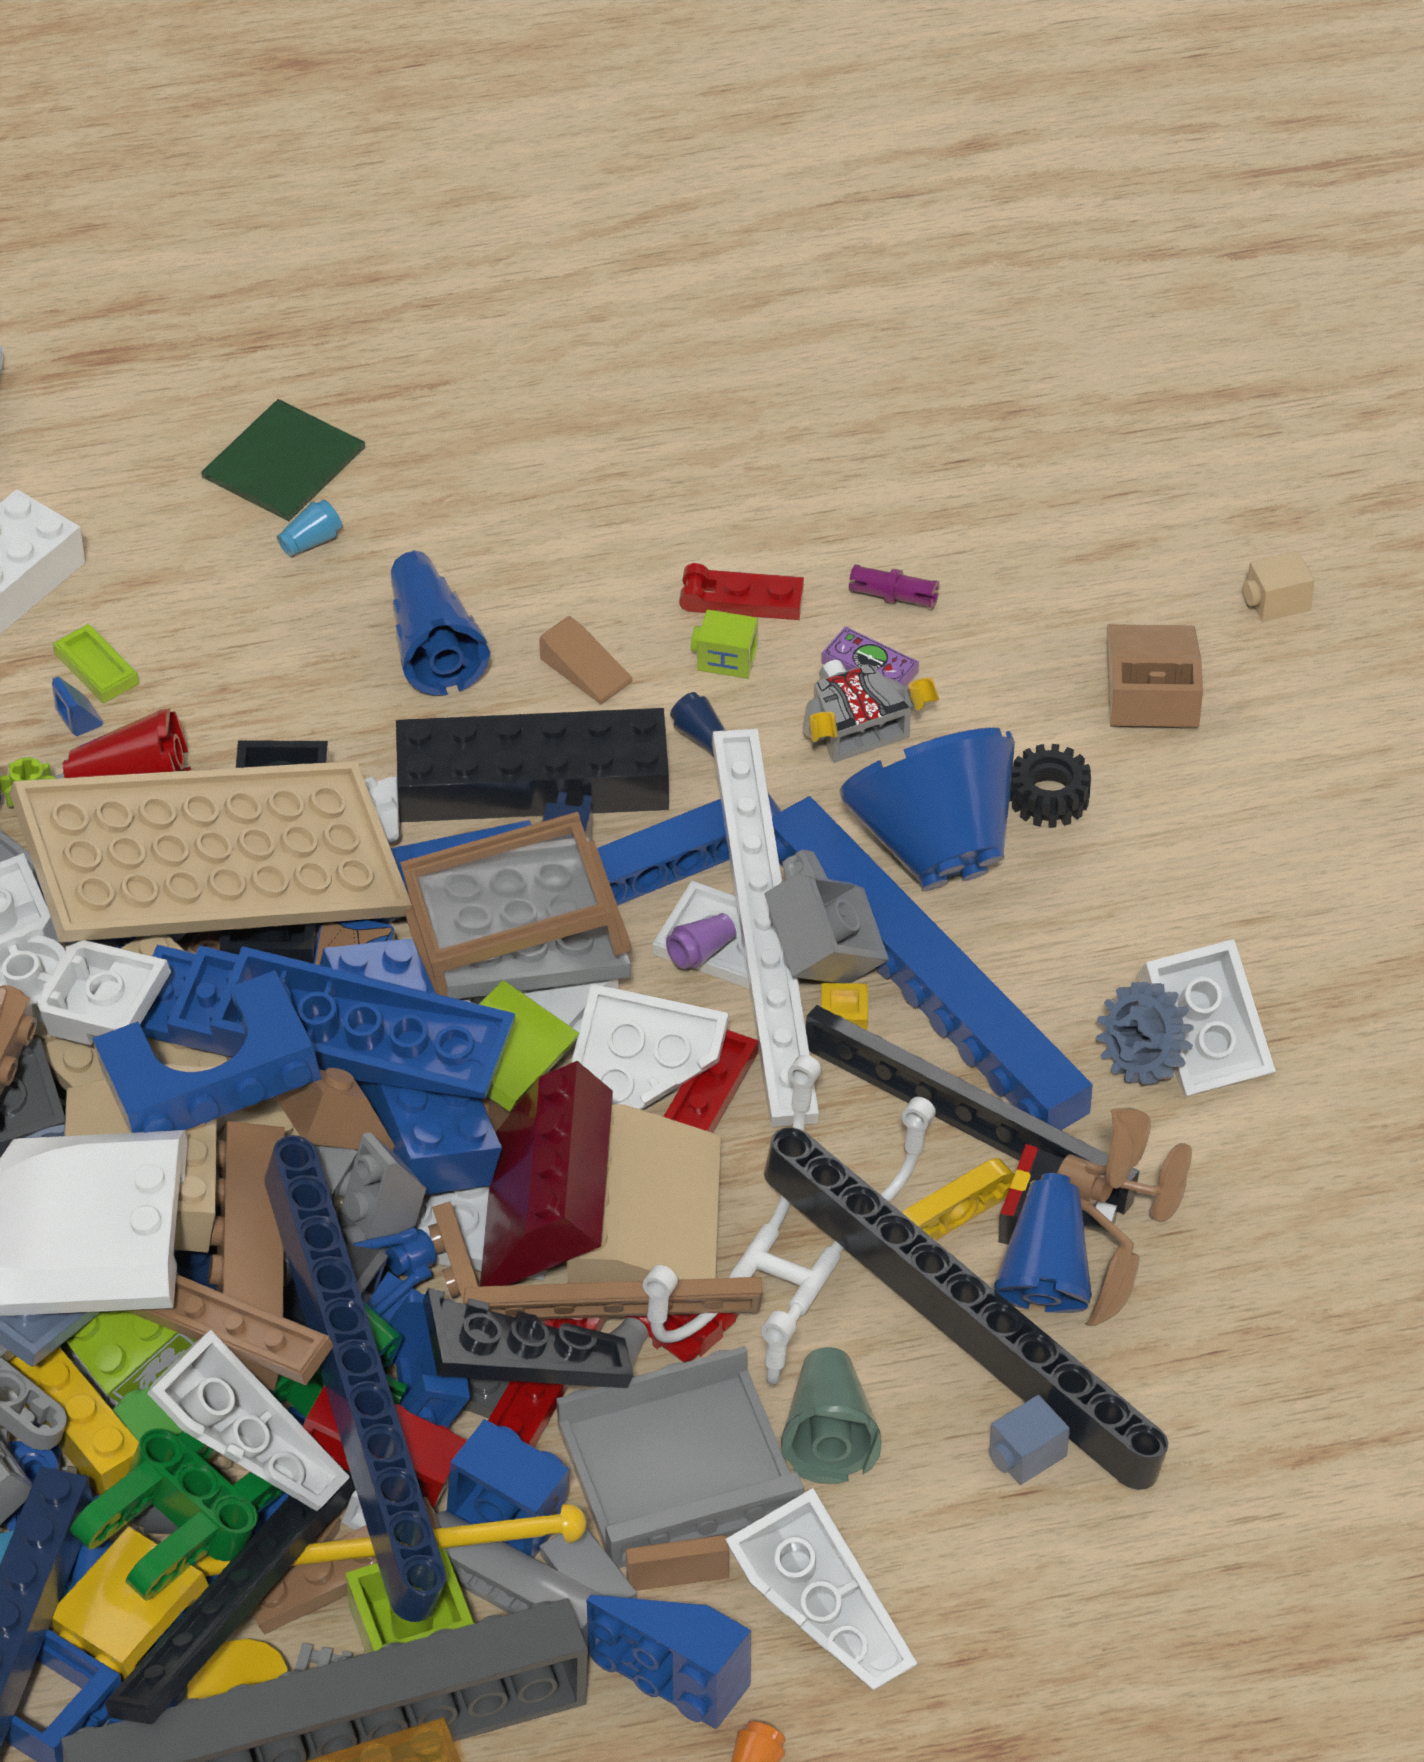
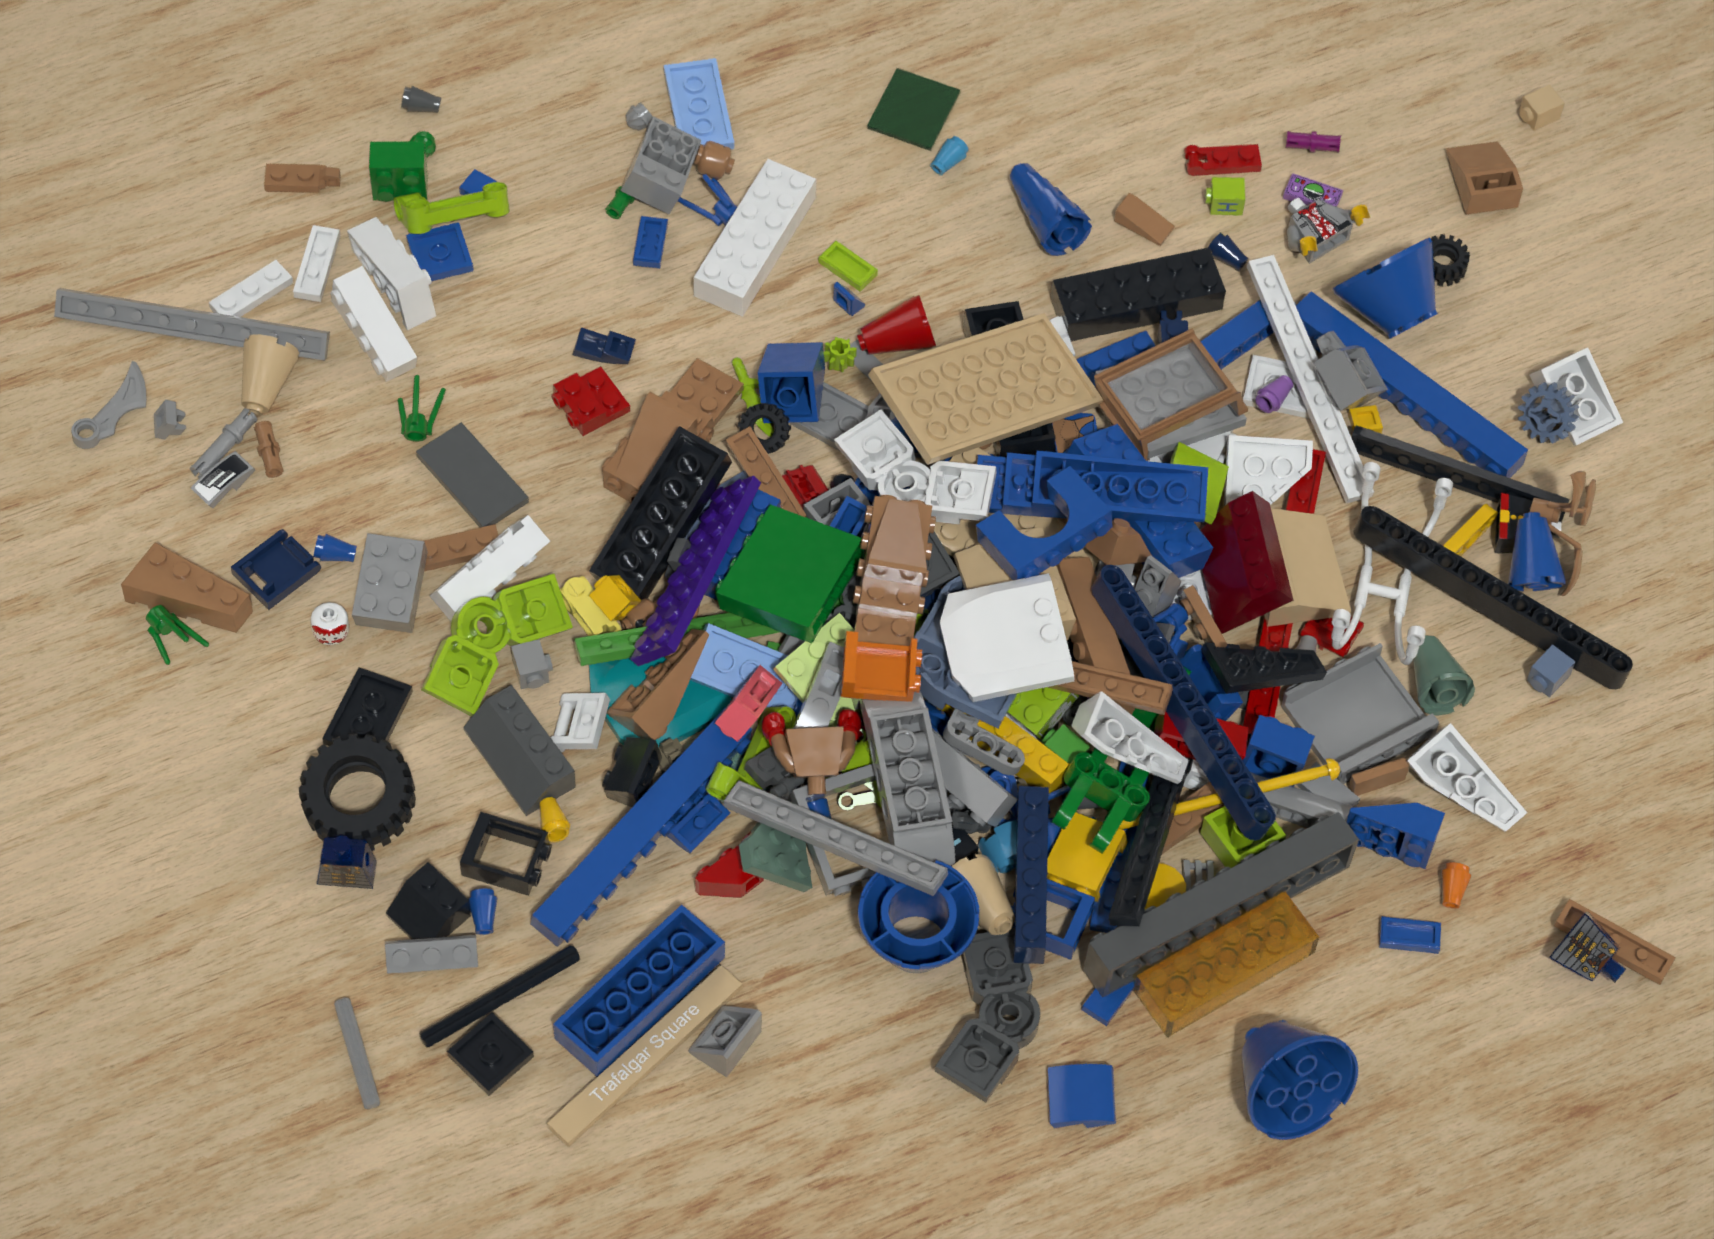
camera: 15 degrees left, 10 degrees up
(620, 1298) = (1303, 628): medium nougat tile -> none

